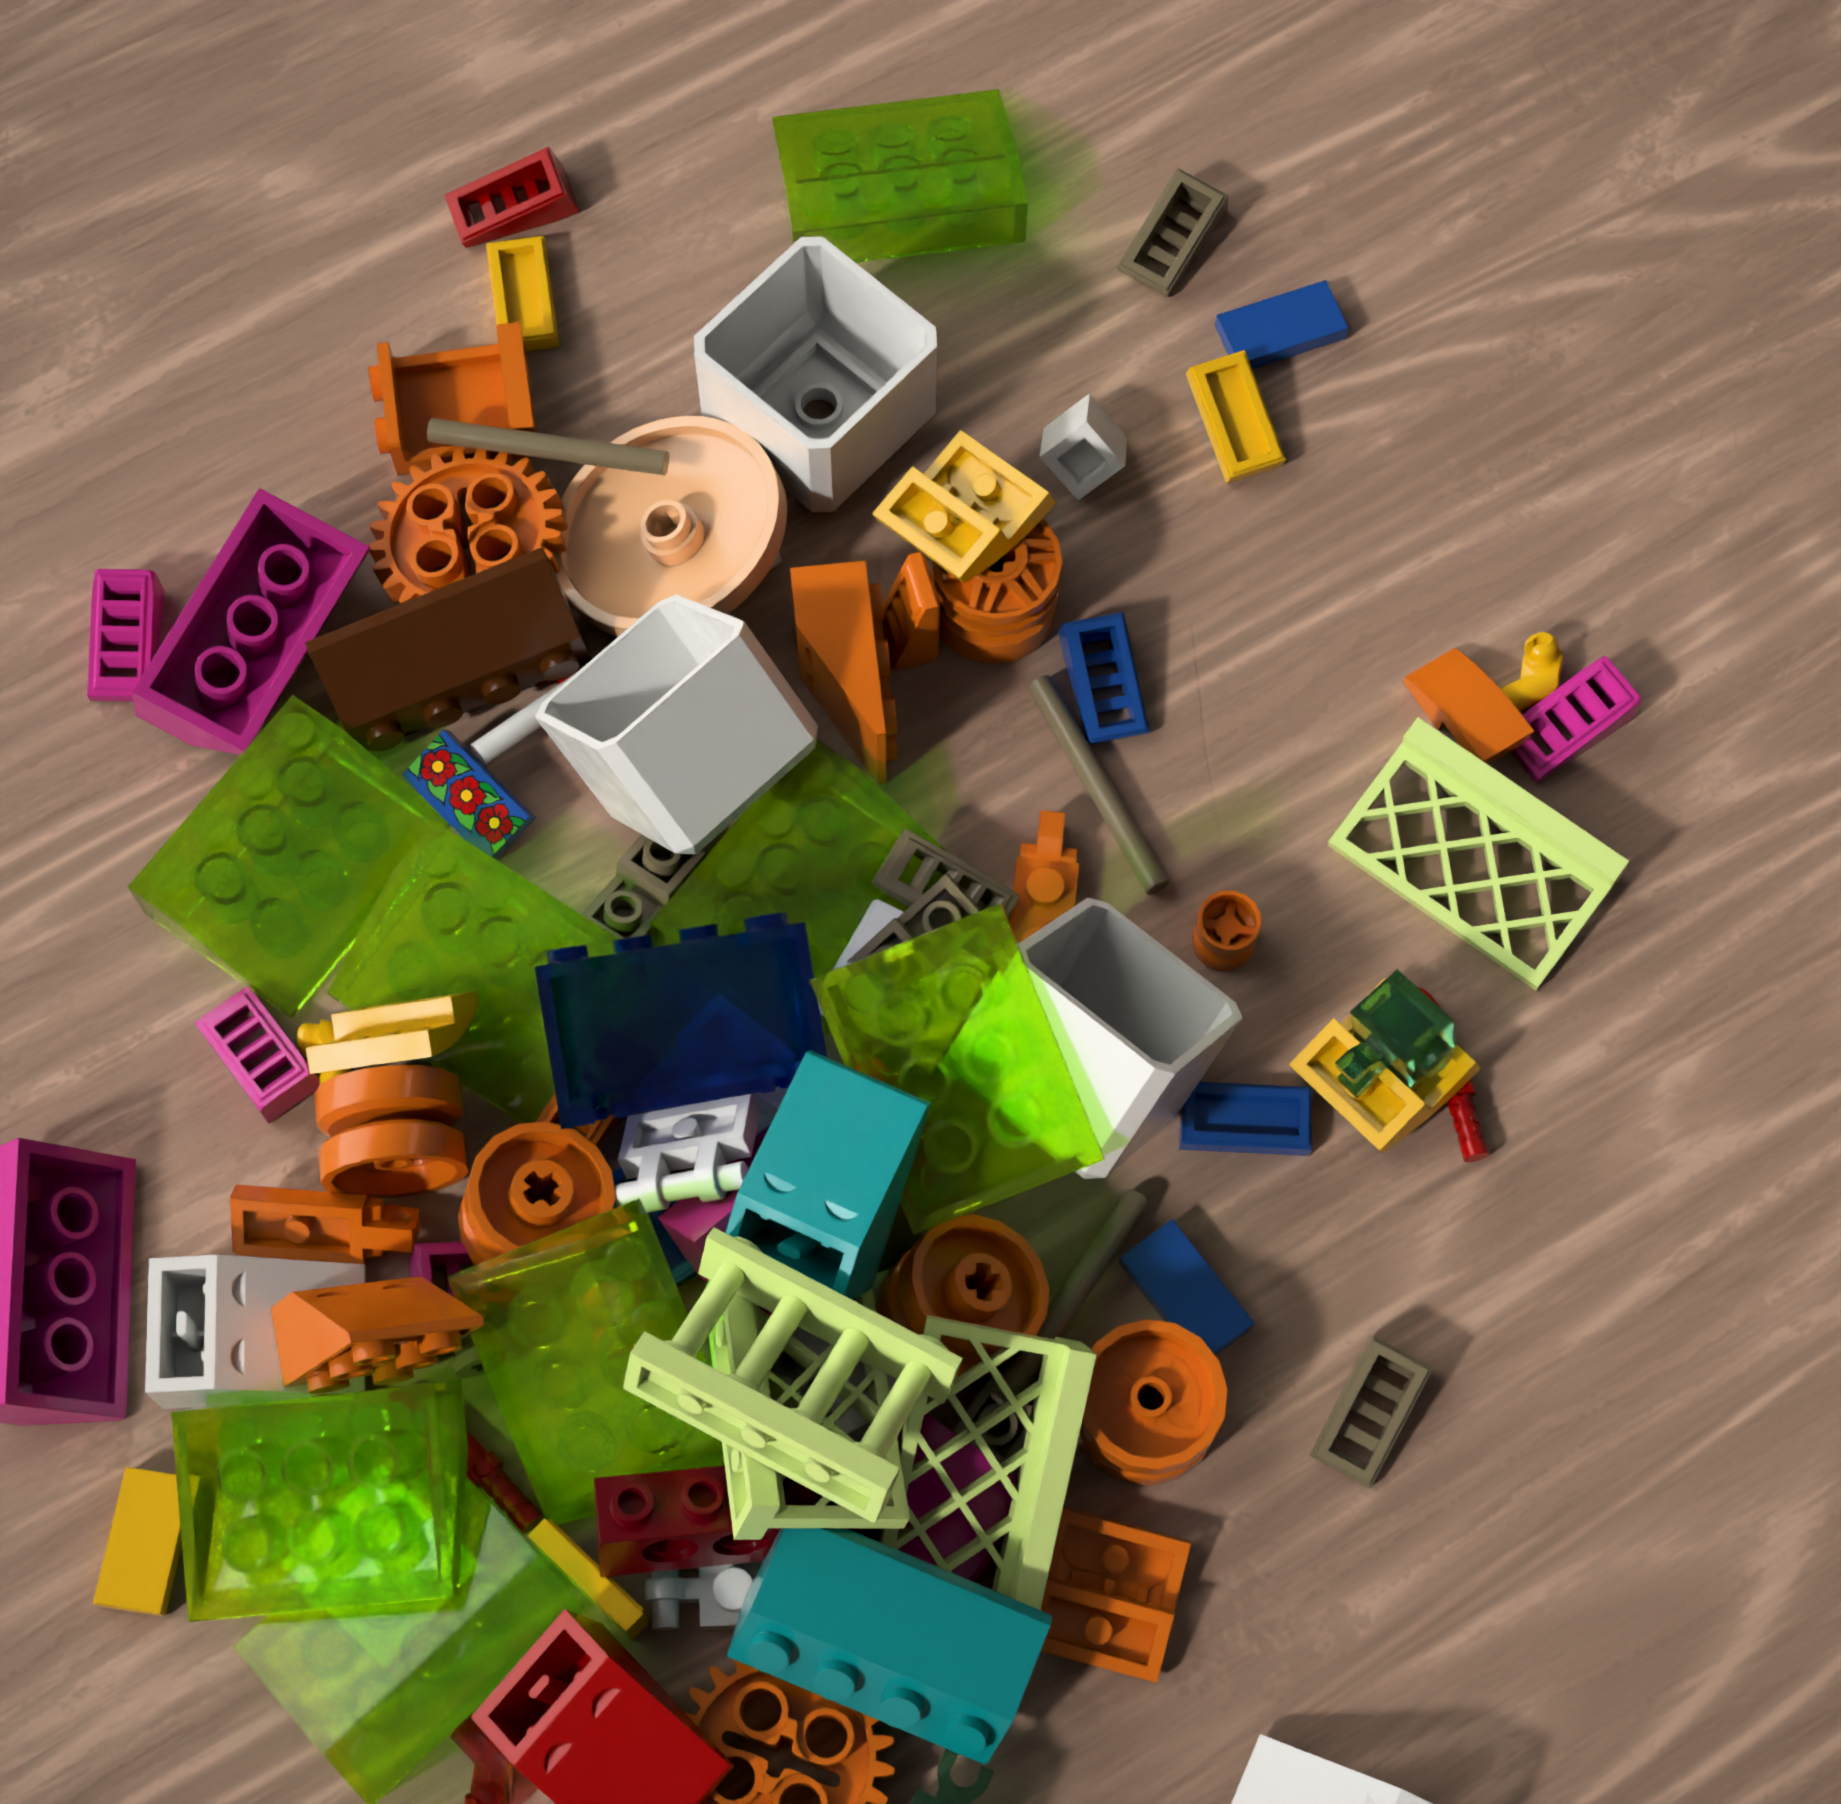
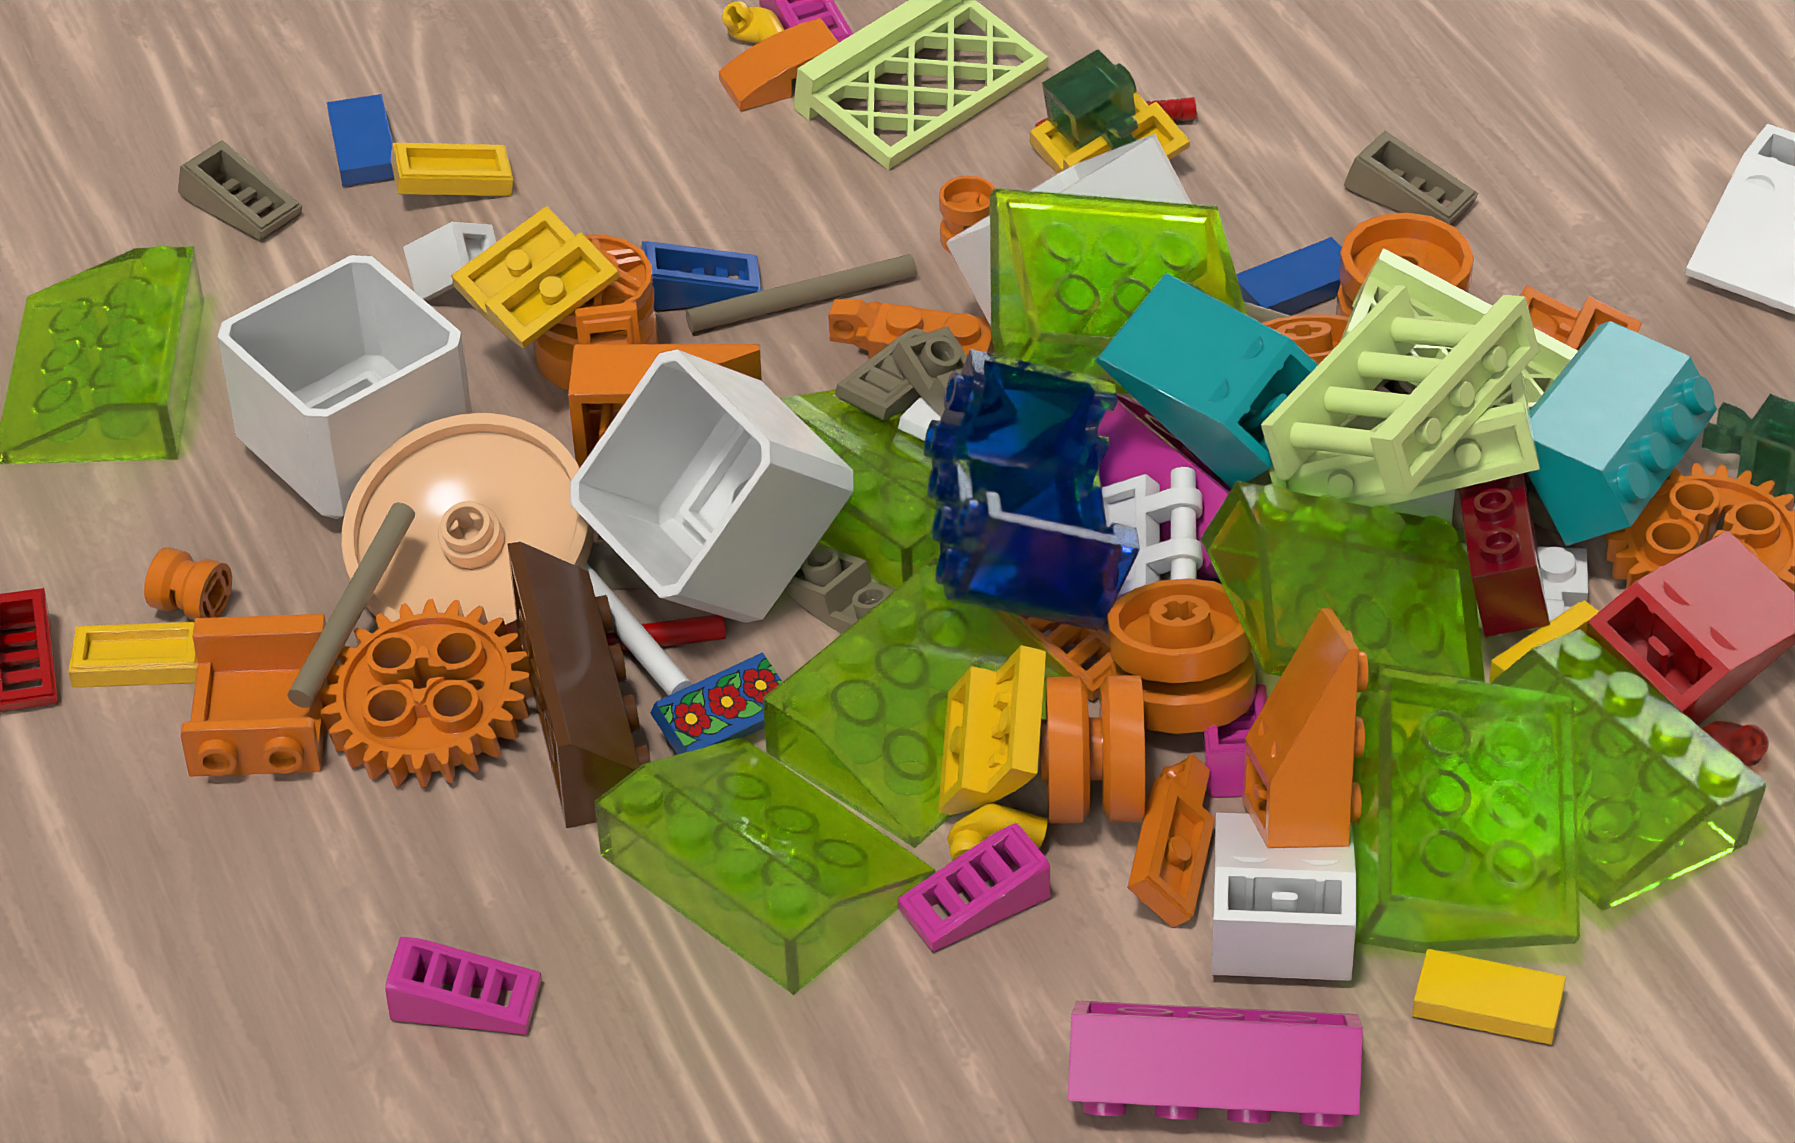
camera: 80 degrees left, 25 degrees down
(247, 626) = (494, 856): dark pink slope -> none
(595, 311) = (192, 586): none -> orange wheel

